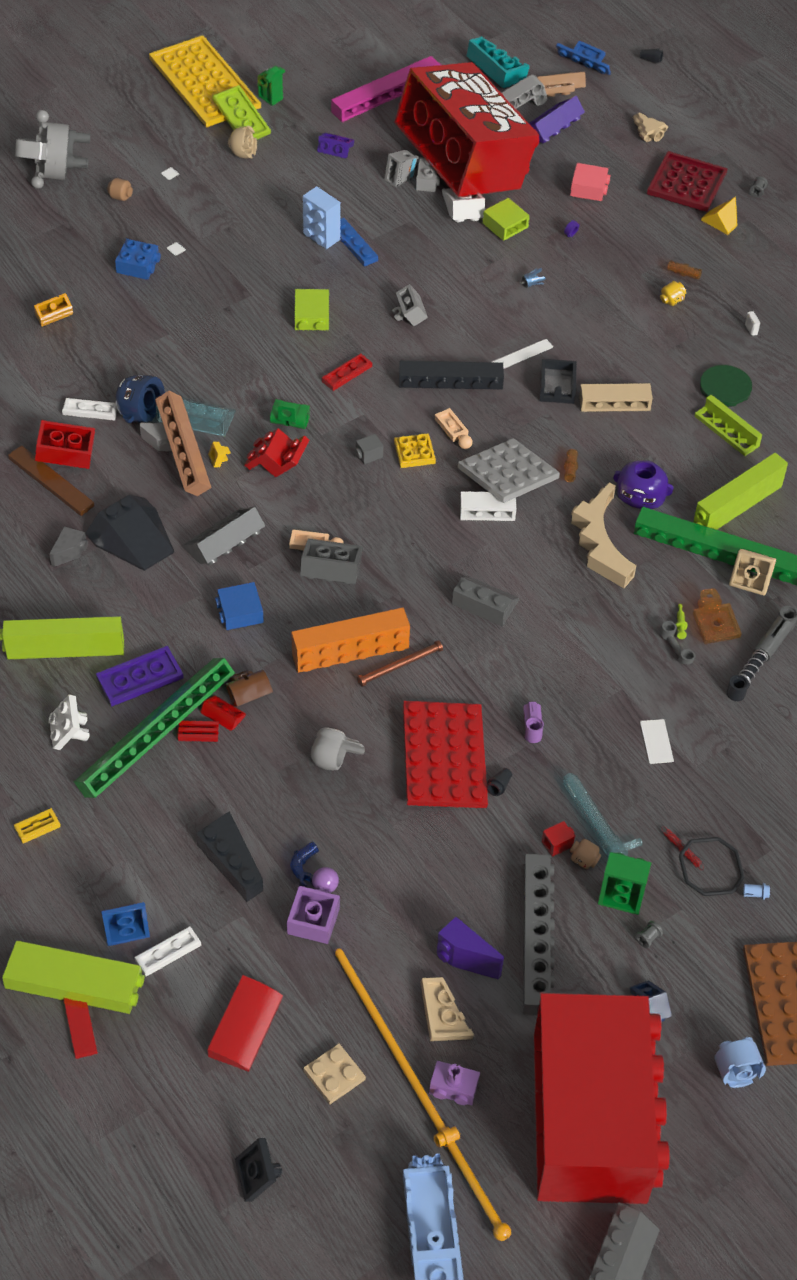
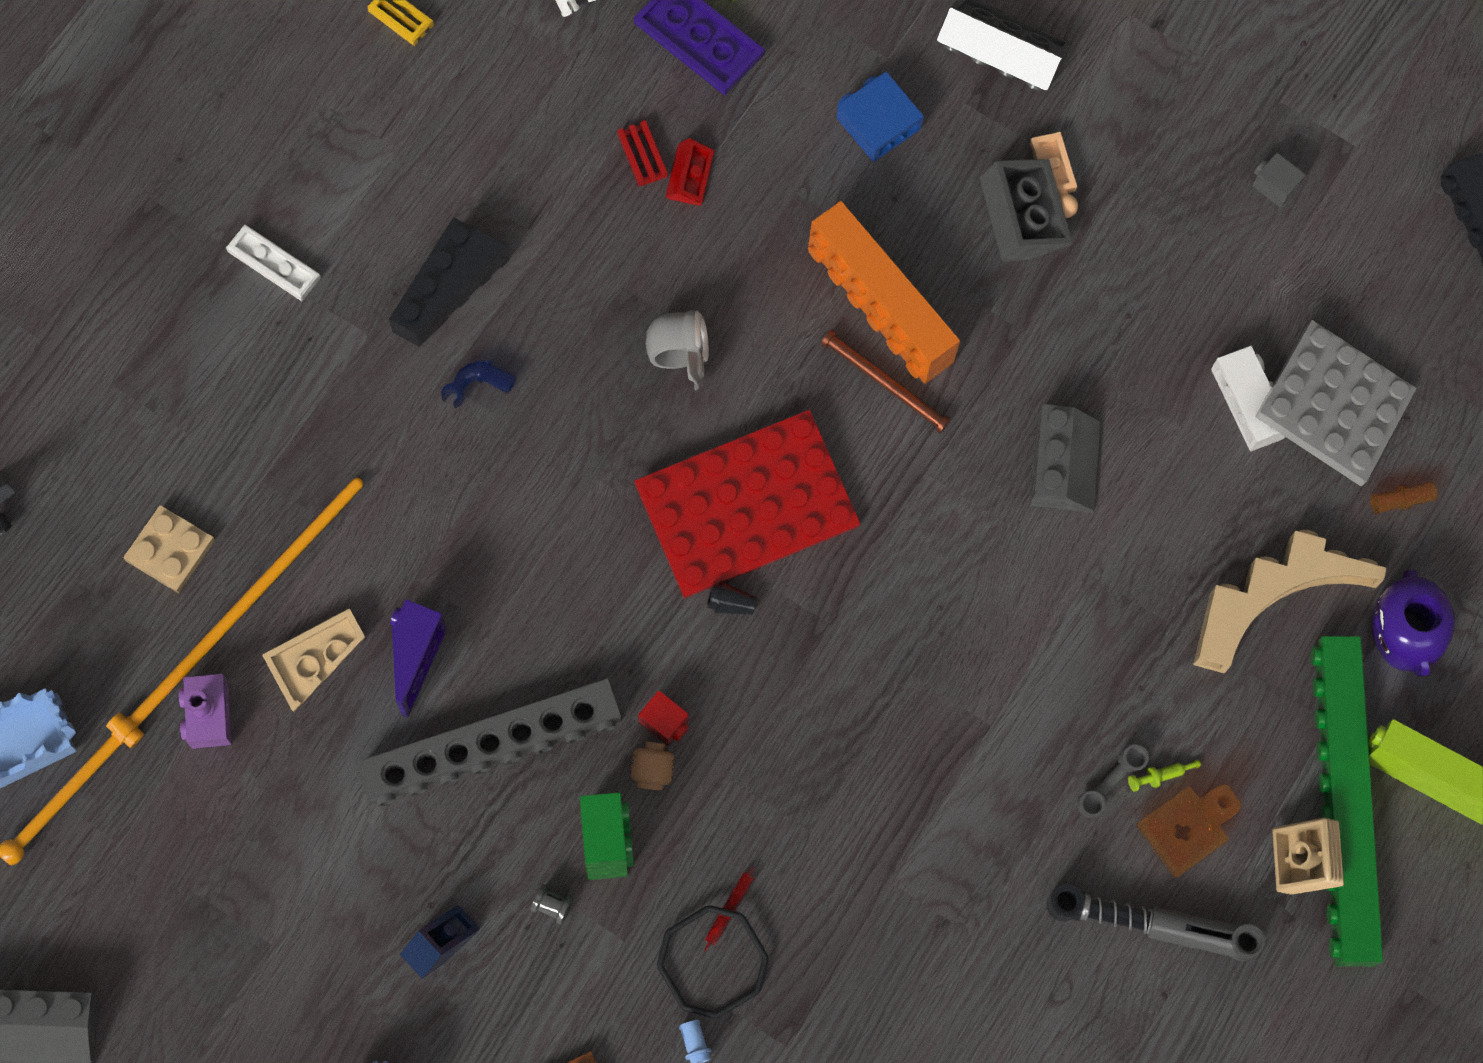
camera: 65 degrees right, 20 degrees up
(73, 976) = (182, 162): lime brick -> none
(80, 1028) = (122, 202): red tile -> none
(125, 924) = (281, 185): blue slope -> none
(153, 728) = (615, 92): green brick -> none
(244, 1024) = (199, 404): red slope -> none
(248, 686) = (739, 185): reddish brown piece -> none
(276, 452) = (1195, 47): red bracket -> none
(290, 414) = (1288, 38): green piece -> none
(315, 910) = (408, 439): medium lavender brick -> none
(347, 372) = (1429, 87): red tile -> none
(414, 450) = (1316, 249): yellow tile -> none
(454, 428) = (1389, 290): light nougat plate -> none
(533, 722) = (862, 610): medium lavender piece -> none
(598, 1099) = (218, 908): red brick -> none
(608, 840) = (687, 798): clear light blue cylinder -> none
(657, 741) = (914, 809): white sticker -> none

